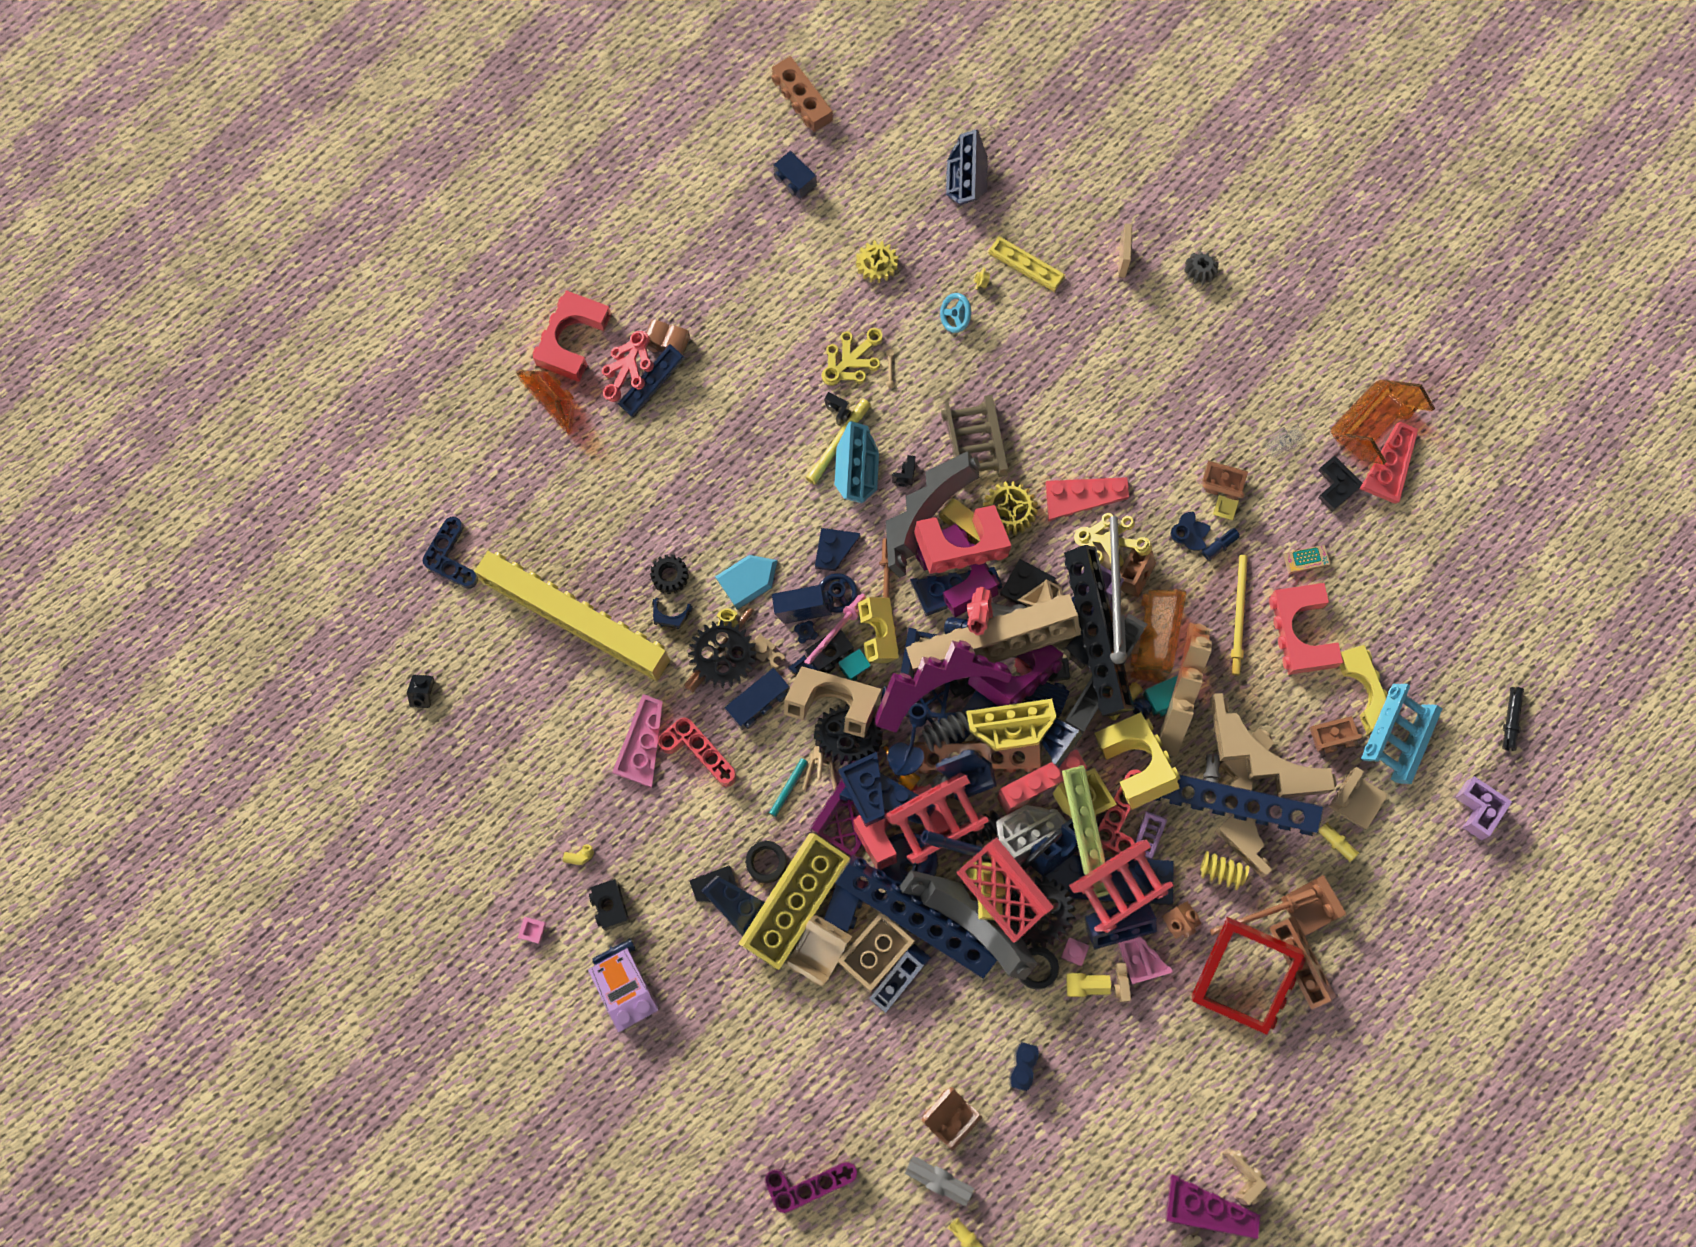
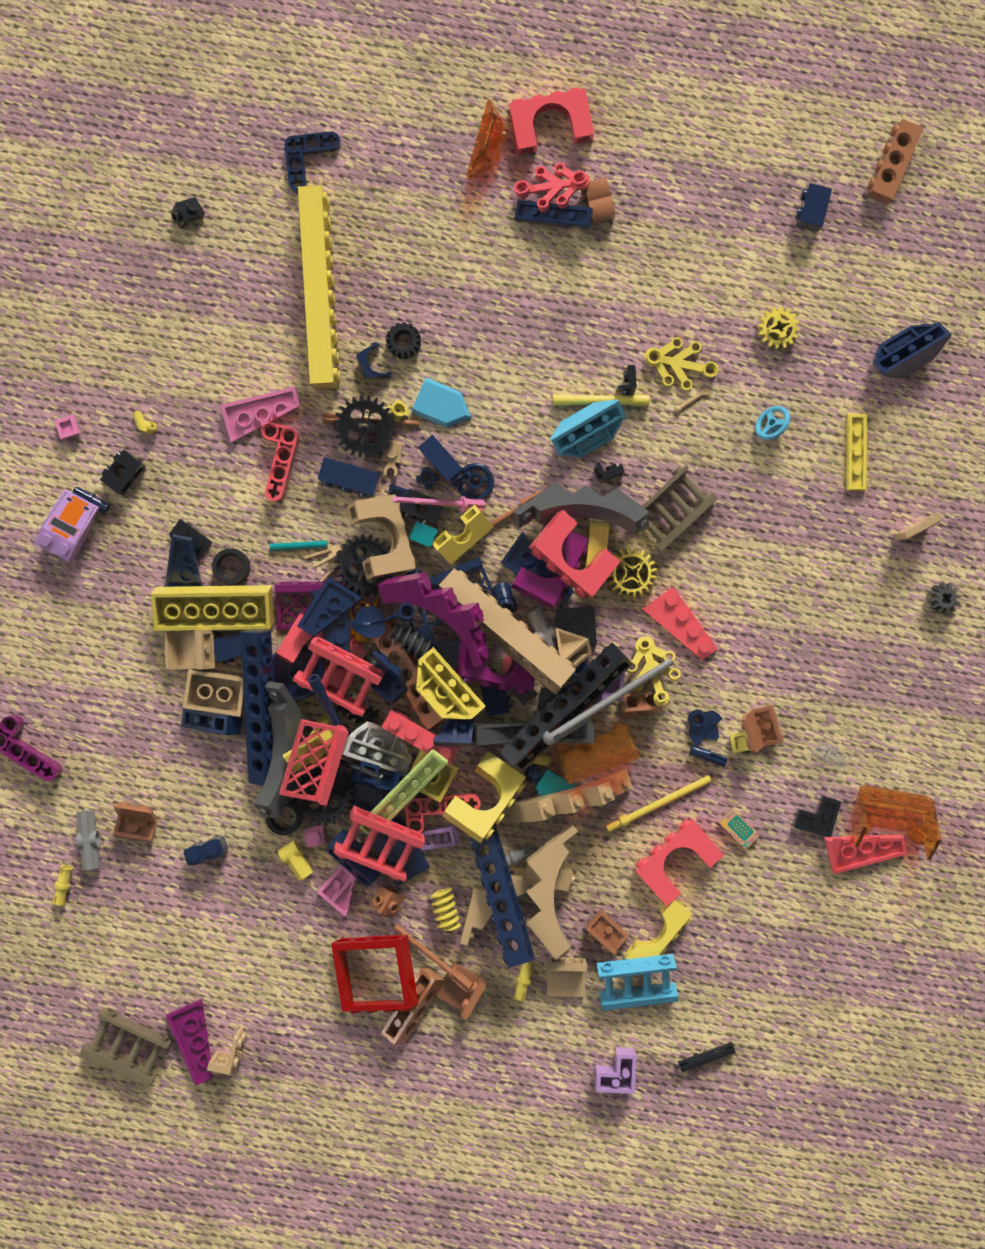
camera: 55 degrees right, 15 degrees up
(834, 547) = (509, 455): dark blue wing -> none
(979, 611) = (518, 607): coral piece -> none
(982, 279) = (818, 424): light yellow plate -> none
(1122, 989) = (308, 887): tan plate -> none

